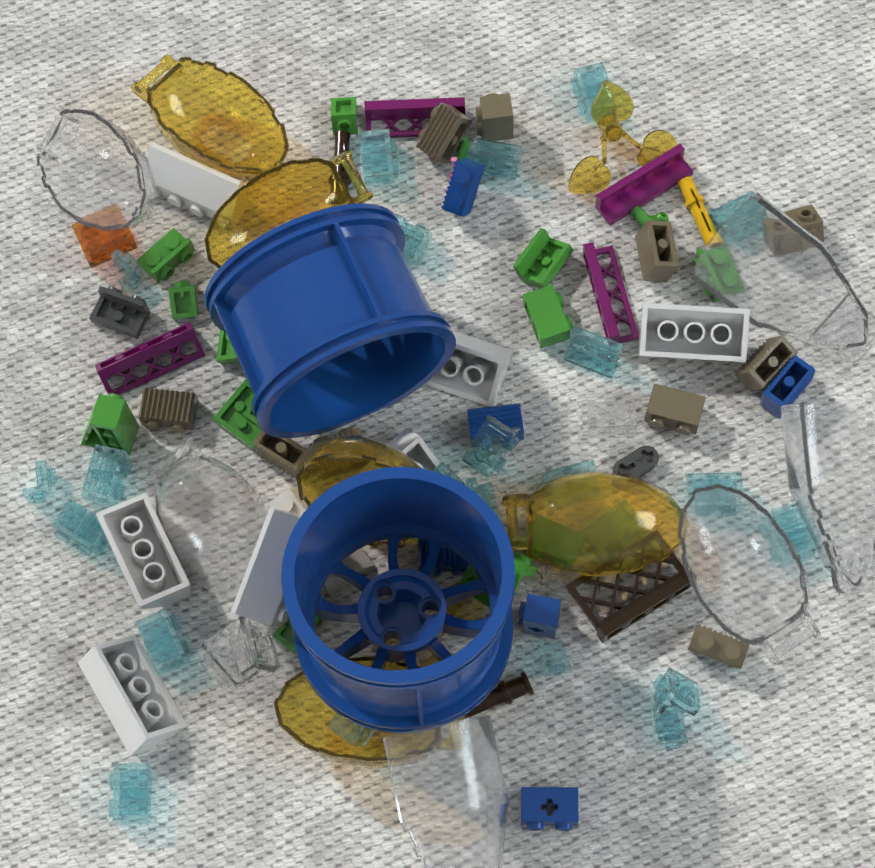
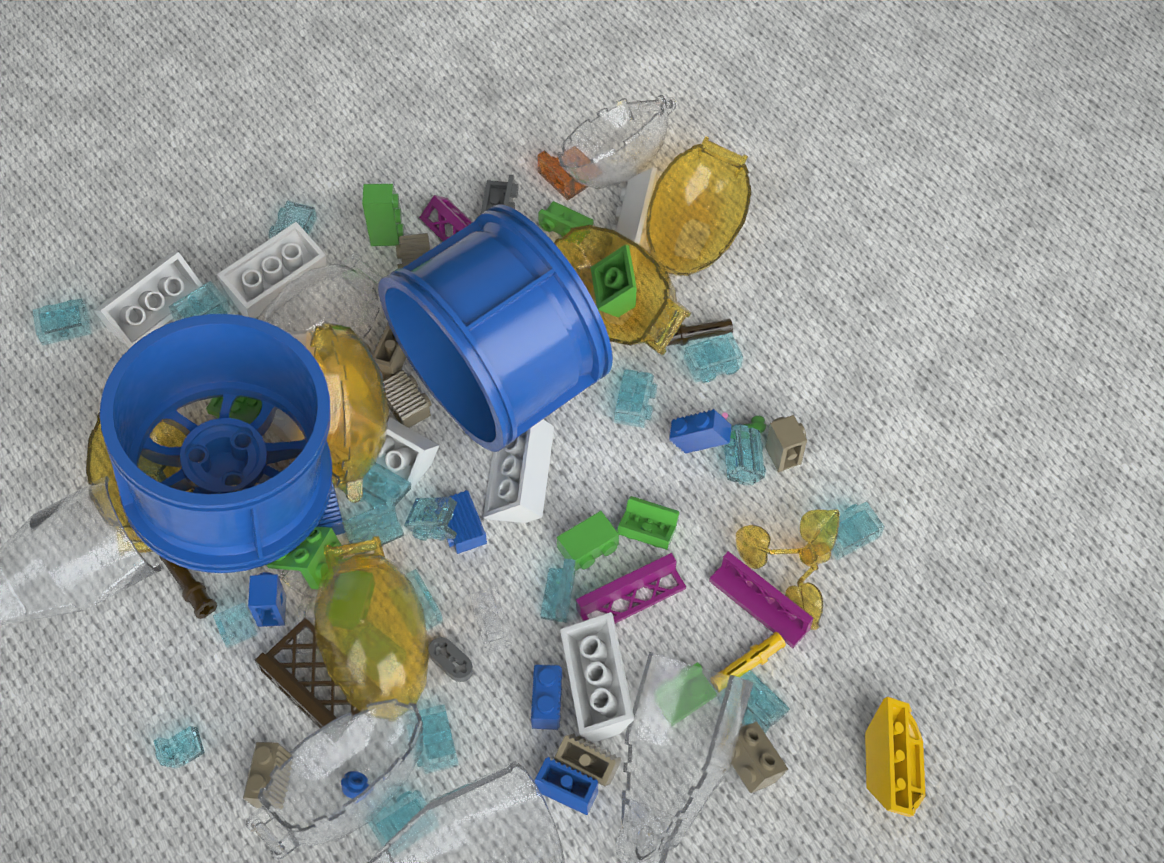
camera: 70 degrees right, 10 degrees down
(45, 478) = (328, 189): clear light blue bracket -> none
(106, 475) = (343, 230): clear light blue brick -> none
(128, 265) = (540, 199): clear light blue bracket -> none
(277, 206) = (615, 283): none -> bright green slope
(344, 115) = (750, 320): bright green bracket -> none
(406, 109) = (774, 374): magenta fence -> none
(443, 133) = (754, 403): dark tan brick -> none
(561, 797) = (86, 667): blue brick -> none
(641, 216) = (723, 615): bright green arm -> none
(657, 251) = (678, 628): dark tan brick -> none
(674, 409) = (515, 680): dark tan brick -> none
(678, 691) = (209, 744): clear light blue bracket -> none
(699, 383) = (546, 697): none -> blue brick
(745, 569) = (354, 783): none -> blue plate
(820, 123) = (895, 758): none -> yellow wedge

